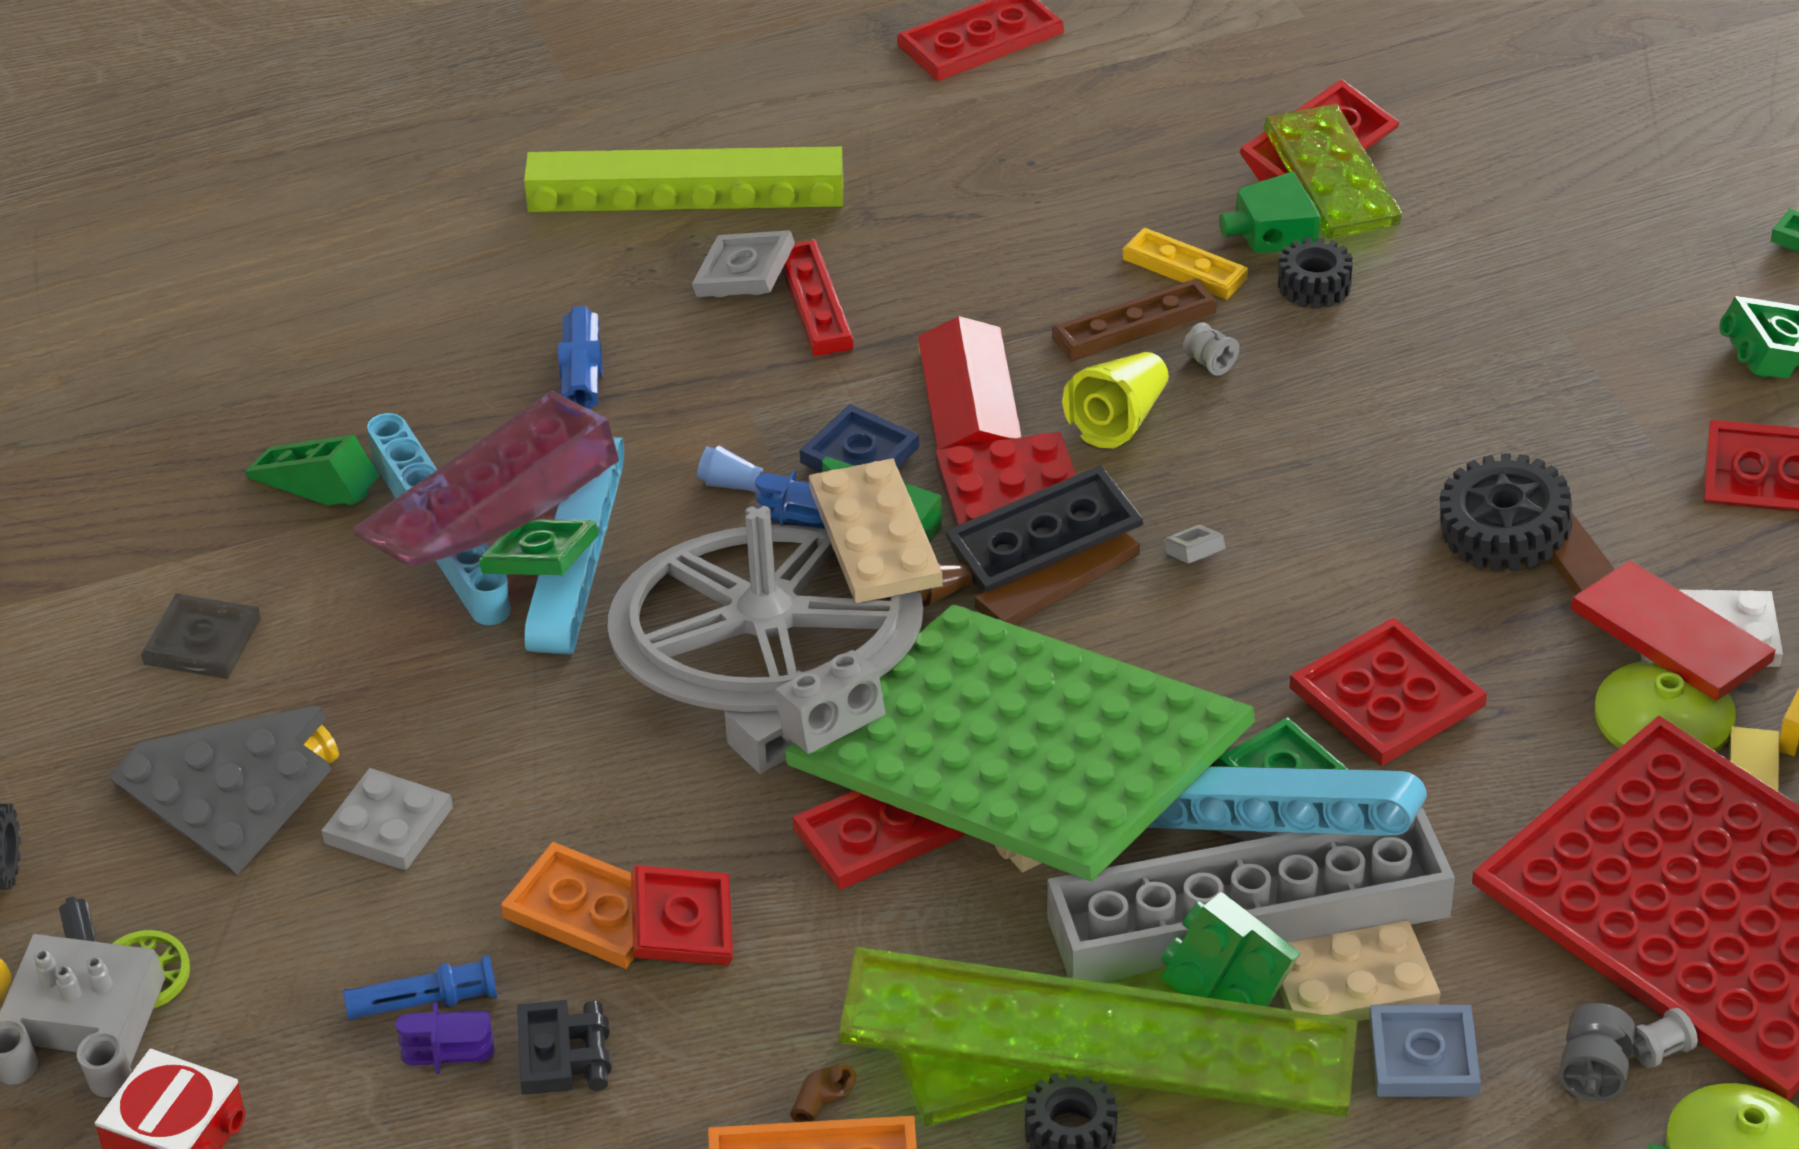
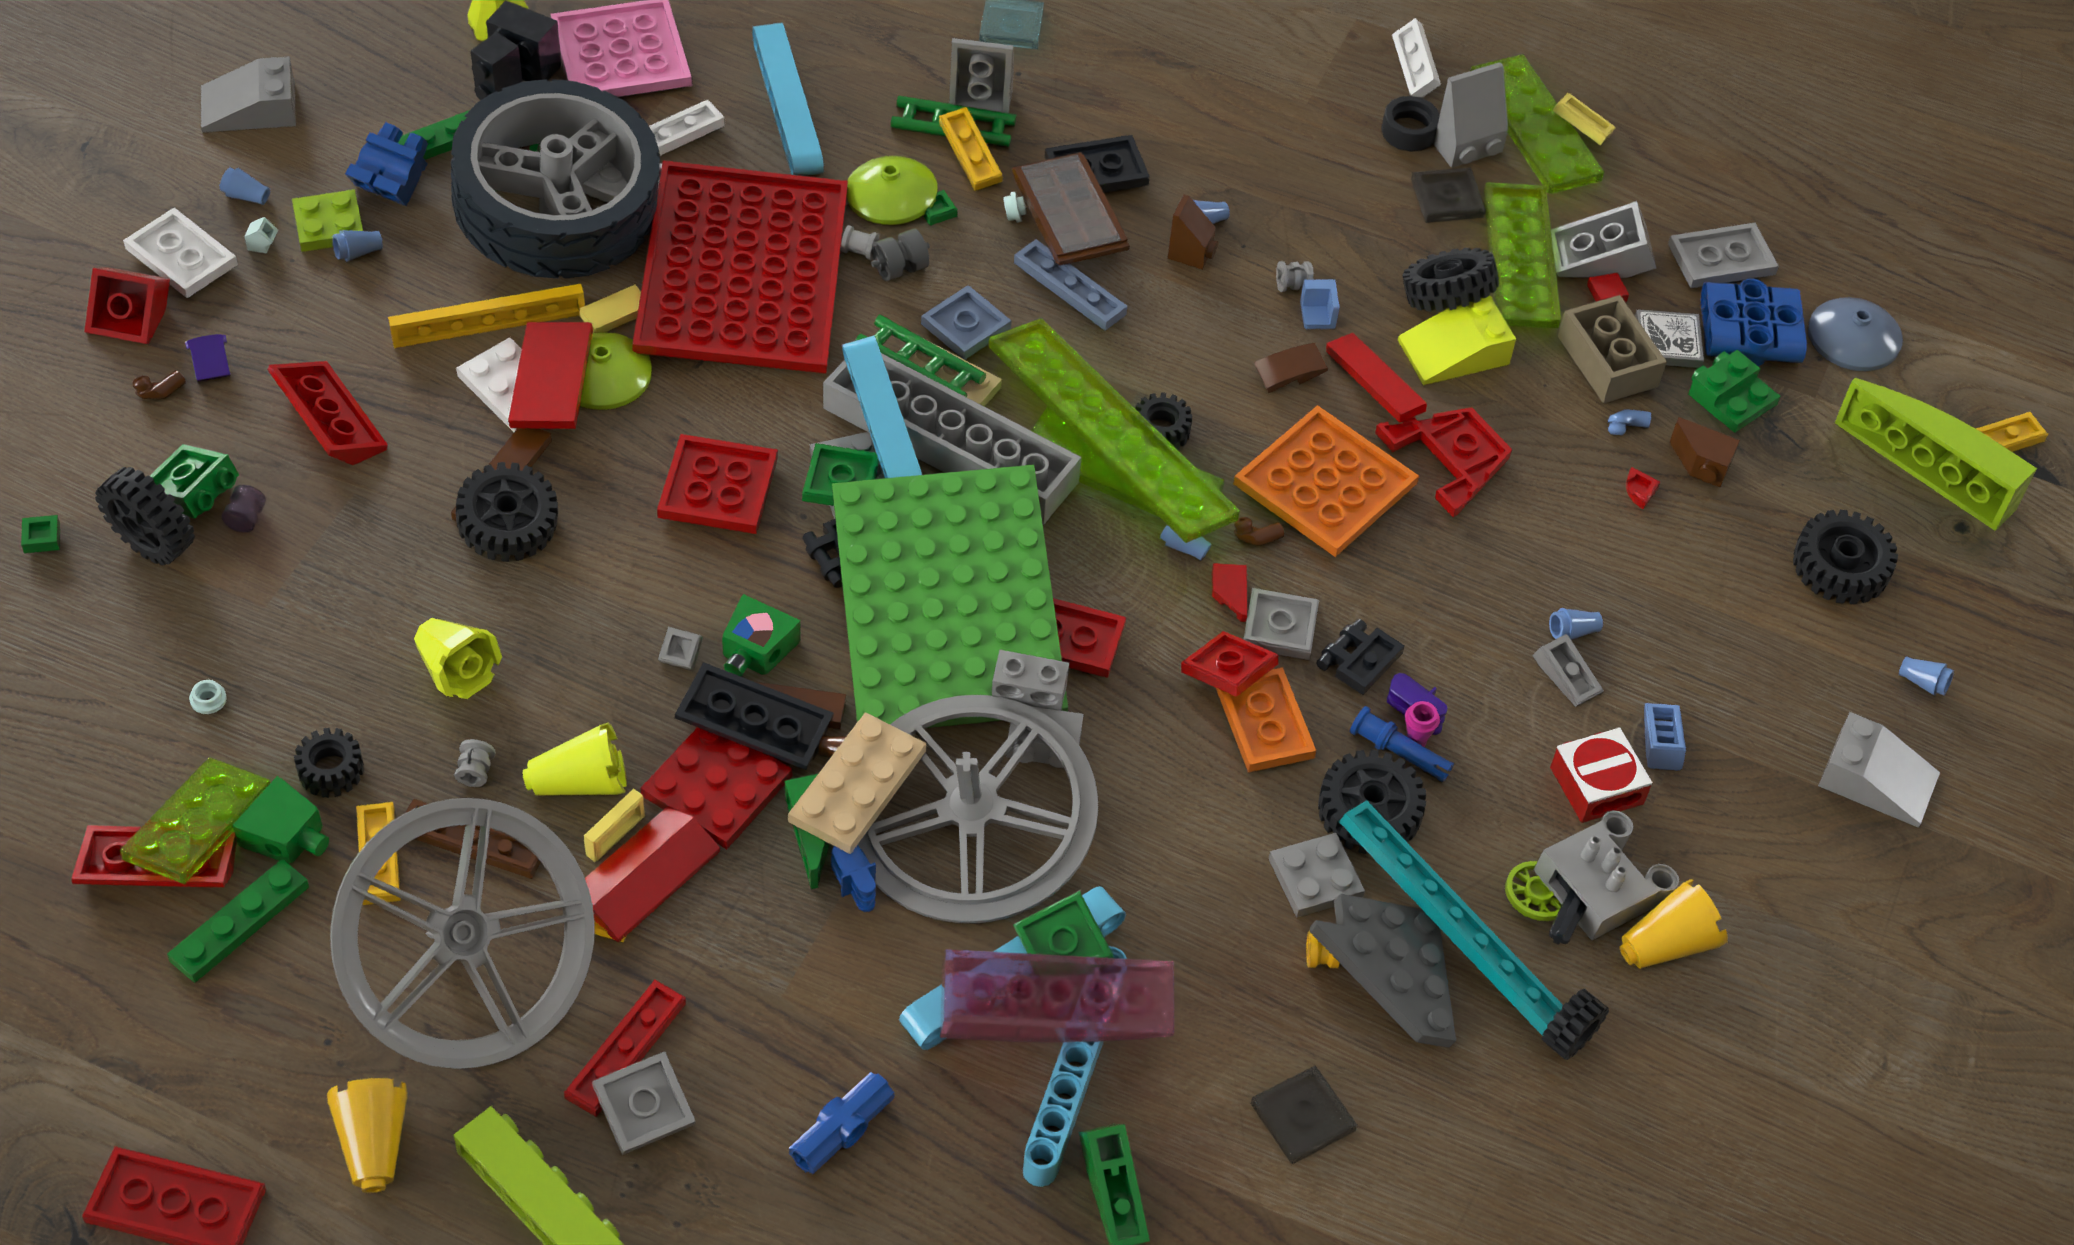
camera: 140 degrees left, 10 degrees up
(201, 844) = (1452, 915): none -> teal plate
(395, 910) = (1376, 779): none -> black wheel
(412, 991) = (1421, 721): none -> dark pink cone
(686, 1021) = (1281, 623): none -> light grey tile
(727, 470) = (862, 941): medium blue cone -> none
(778, 1011) = (1230, 587): none -> red tile
(859, 439) = (766, 884): dark blue plate -> none
(912, 120) = (369, 1129): none -> yellow cone
(1000, 192) = (463, 933): none -> light grey wheel
(1036, 391) = (614, 825): none -> light yellow tile
(1146, 597) = (758, 637): none -> green torso
(1206, 163) = (238, 920): none -> green plate
(1227, 955) = (1016, 395): green plate -> none
(1351, 383) = (457, 656): none -> neon yellow cone
(1412, 927) = (939, 356): none -> green bar
(1477, 243) = (204, 690): none -> light aqua plate
(1704, 359) = (243, 509): none -> wheel
(1726, 254) = (145, 515): none -> black wheel

